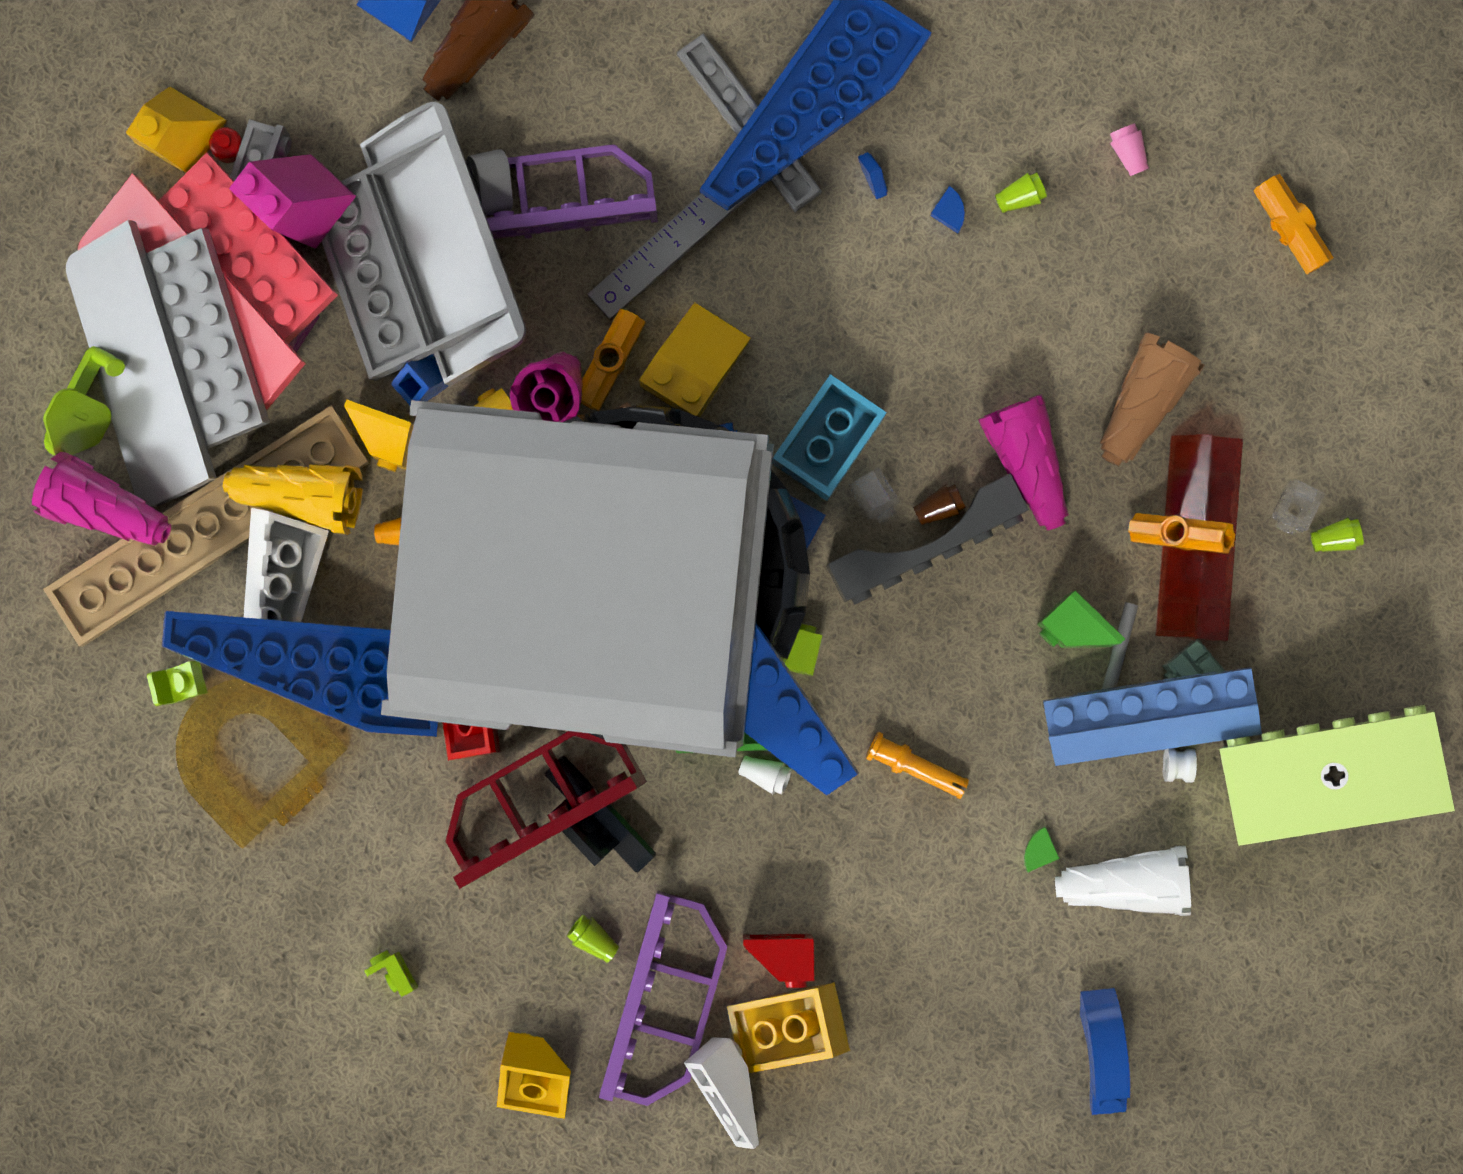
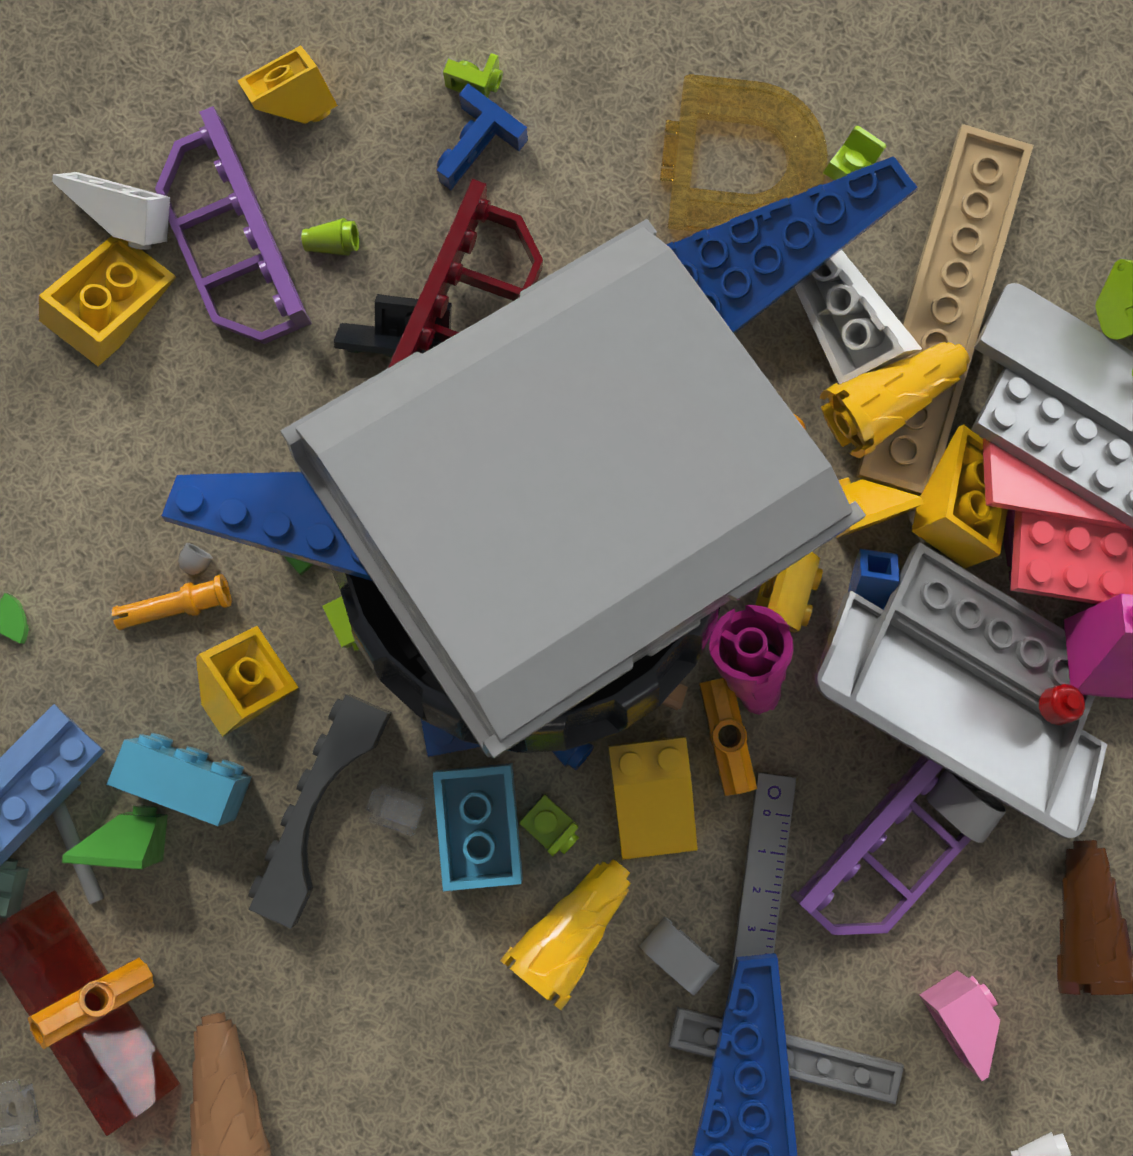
camera: 145 degrees right, 0 degrees up
(92, 501) = (1058, 246): dark pink cone -> none
(321, 385) = (955, 505): none -> yellow slope
(369, 193) = (1061, 704): none -> red piece
(427, 927) = (477, 134): none -> blue bracket
(610, 48) = (966, 1019): none -> bright pink slope
(765, 243) = (679, 956): none -> light grey beam
(780, 398) = (550, 826): none -> lime bracket
(784, 956) = (155, 348): red slope -> none
(841, 313) = (560, 945): none -> yellow cone
(873, 175) = (635, 1101): blue tile -> none
(879, 785) = (193, 559): none -> light grey hinge
(910, 671) = (241, 680): none -> yellow slope
(940, 505) = (333, 849): reddish brown cone -> none
(950, 210) = (540, 1126): blue tile -> none
(1004, 635) = (180, 778): none -> medium azure brick
(1028, 453) = (291, 961): dark pink cone -> none

